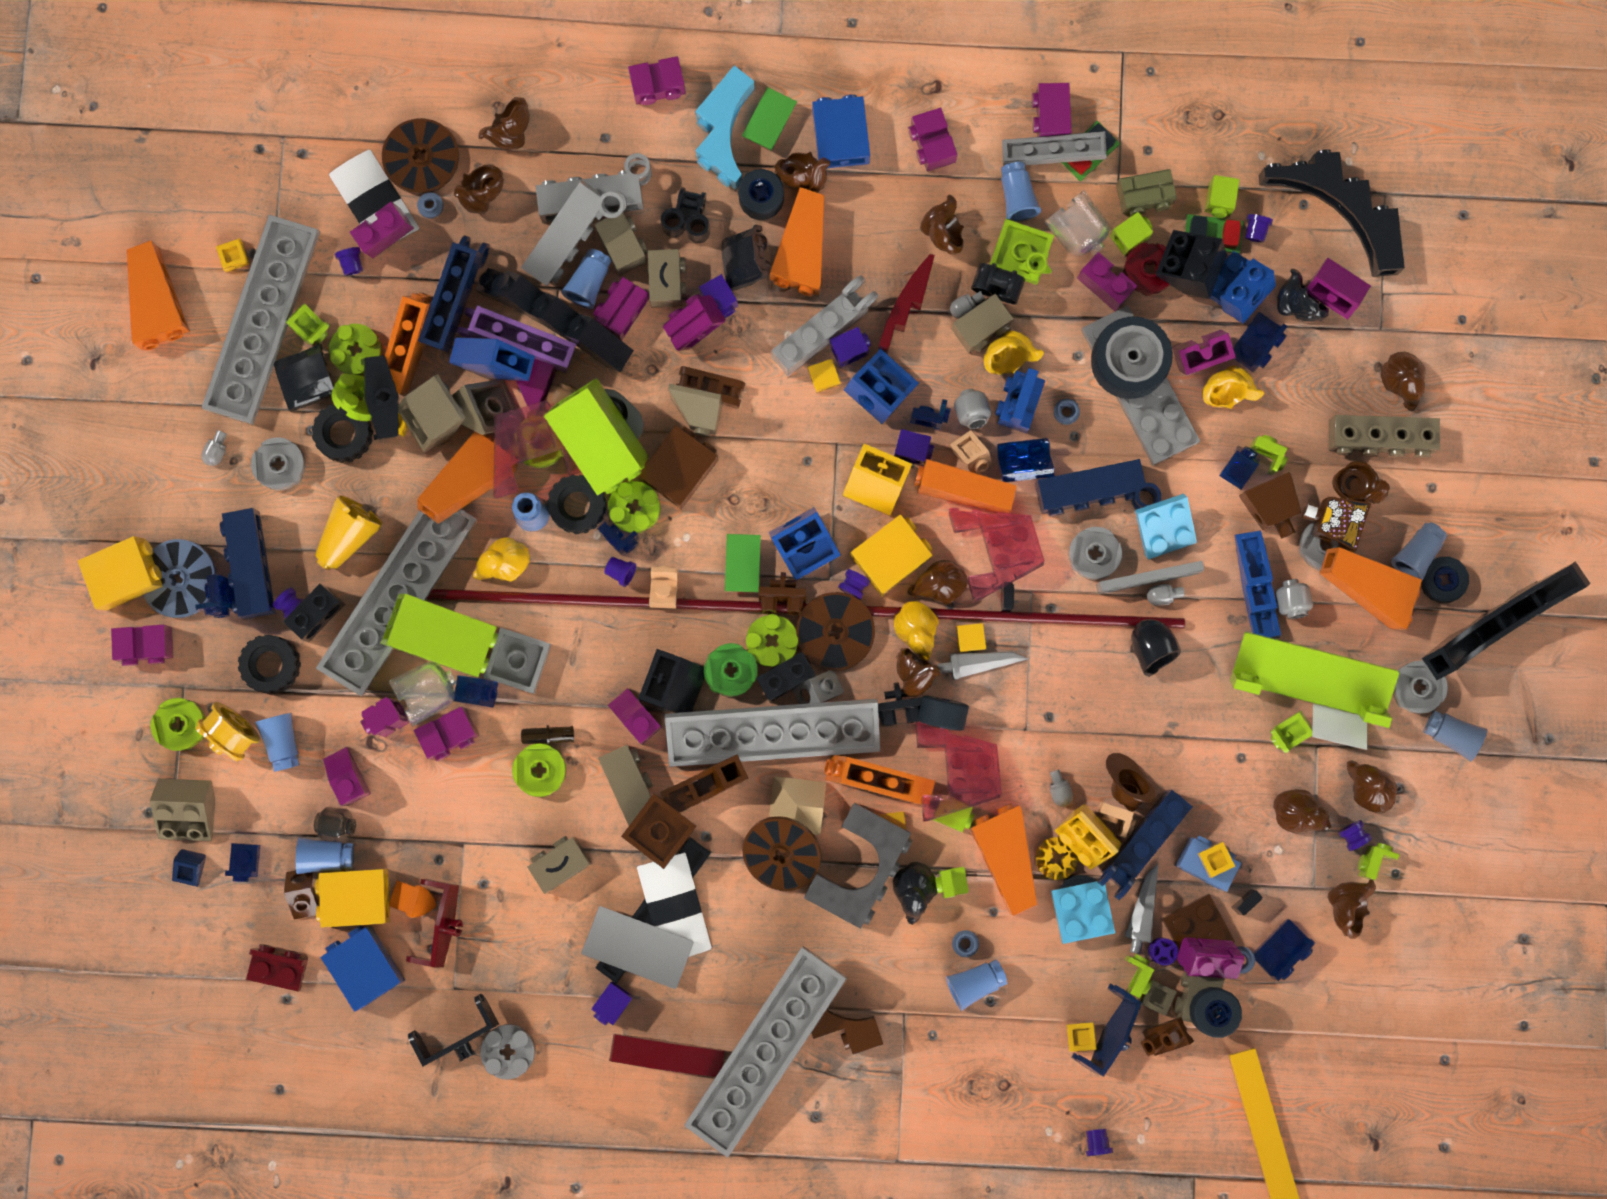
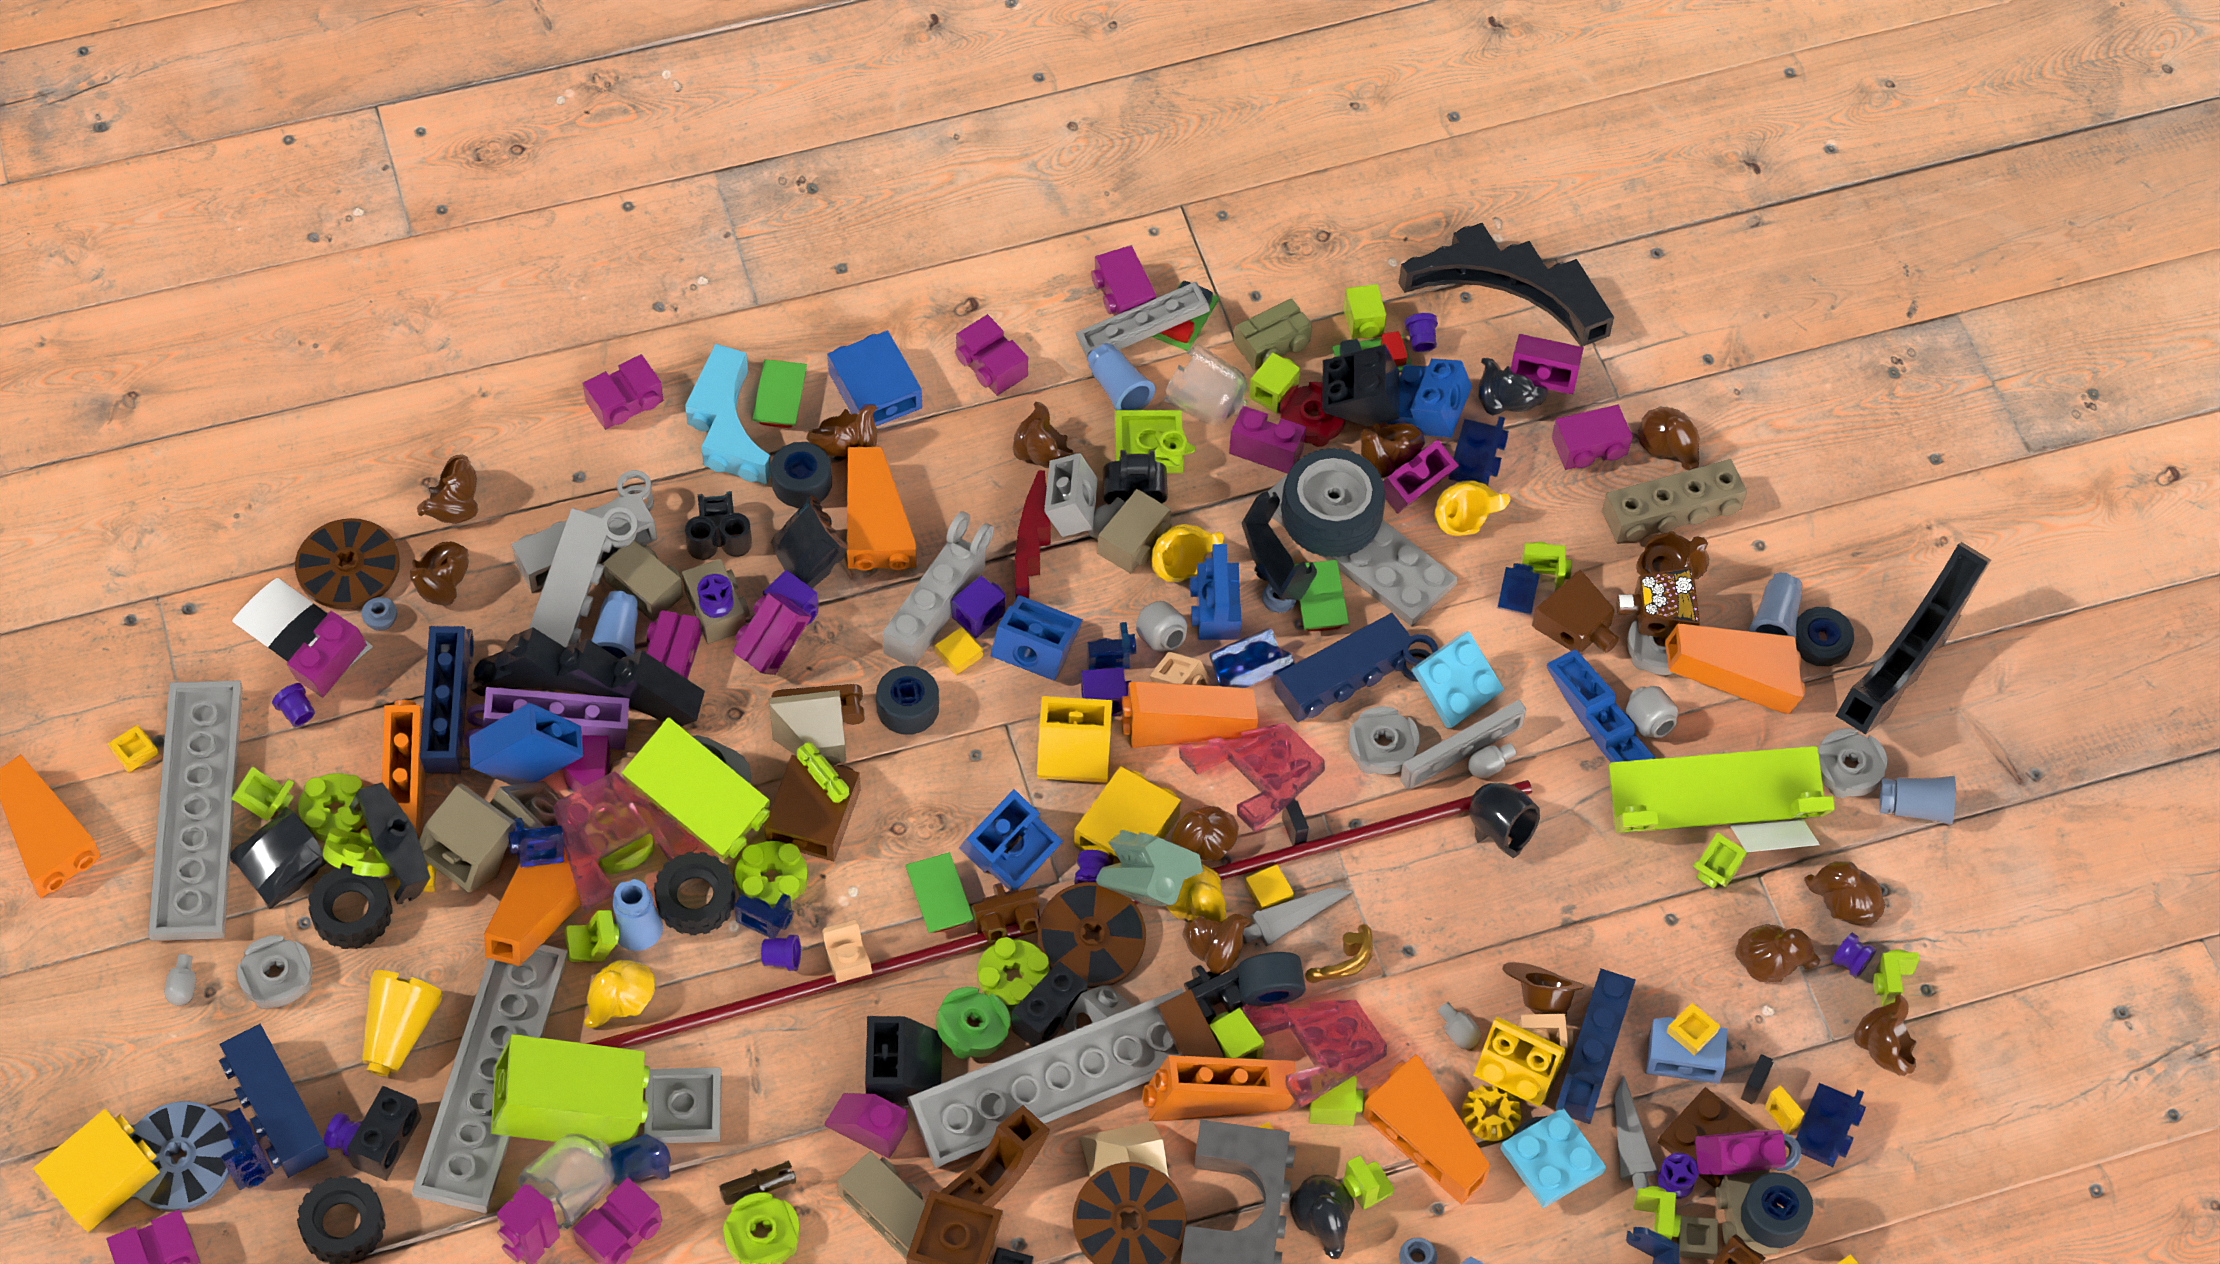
camera: 20 degrees left, 25 degrees down
(475, 441) = (536, 845): none -> clear blue bracket
(494, 516) = (592, 940): none -> lime bracket
(661, 276) = (718, 587): none -> dark purple wheel
(691, 449) = (822, 772): none -> lime axle
(769, 413) = (907, 700): none -> black wheel
(872, 733) = (1188, 1026): none -> reddish brown tile
(888, 608) = (1149, 868): none -> sand green piece
(902, 745) = (1236, 1036): none -> lime brick
(946, 281) = (1071, 495): none -> light grey brick
(1010, 701) = (1353, 944): none -> pearl gold piece
(1072, 379) = (1270, 555): none -> black piece
(1096, 421) = (1324, 601): none -> bright green piece
(1195, 318) = (1391, 446): none -> reddish brown hair
(1255, 931) = (1784, 1110): none -> yellow tile
(1347, 360) = (1591, 436): none -> magenta brick

